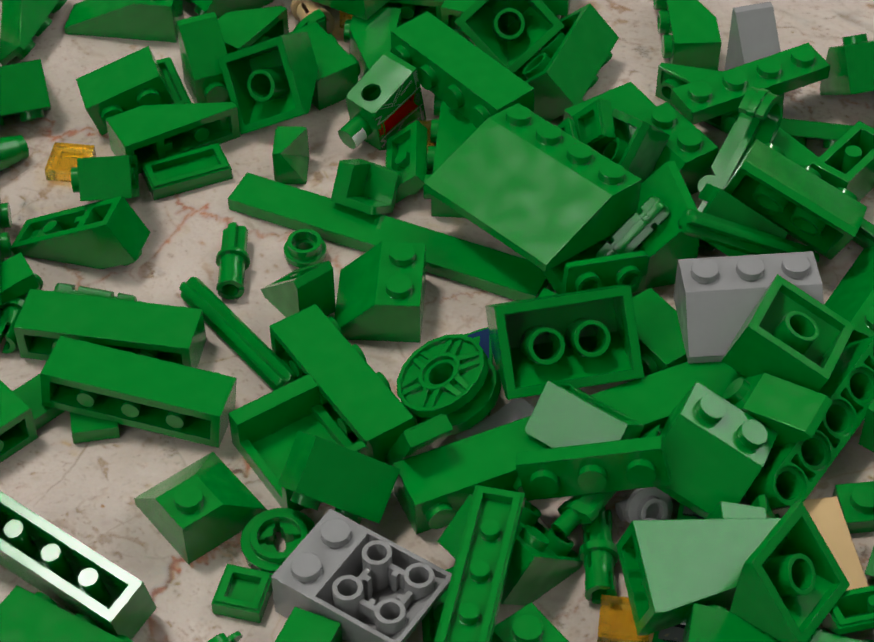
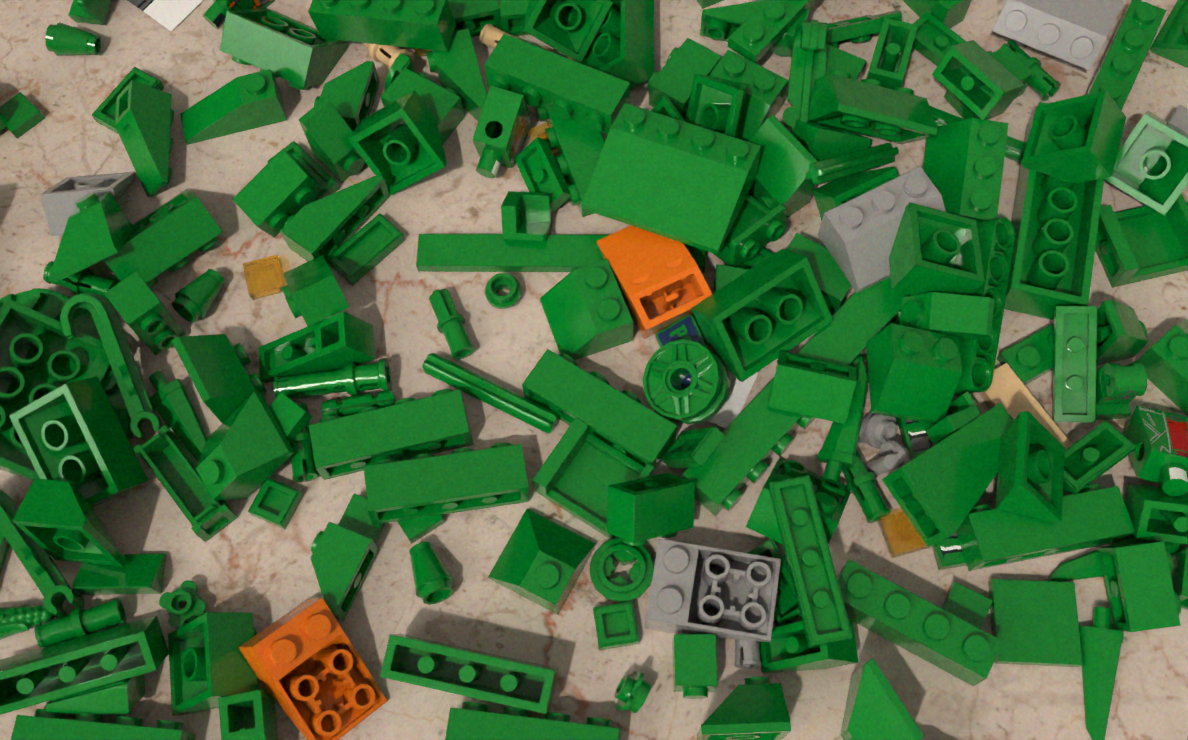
camera: 20 degrees left, 20 degrees up
(73, 473) = (430, 575): none -> green cone
(98, 272) = (351, 379): none -> green pin
(291, 154) = (446, 205): green slope -> none
(303, 289) = (522, 334): green slope -> none
(465, 275) = (654, 277): none -> orange slope
(593, 468) = (843, 425): green plate -> none
(595, 124) = (687, 96): green tile -> none
(636, 228) = (763, 188): green axle -> none

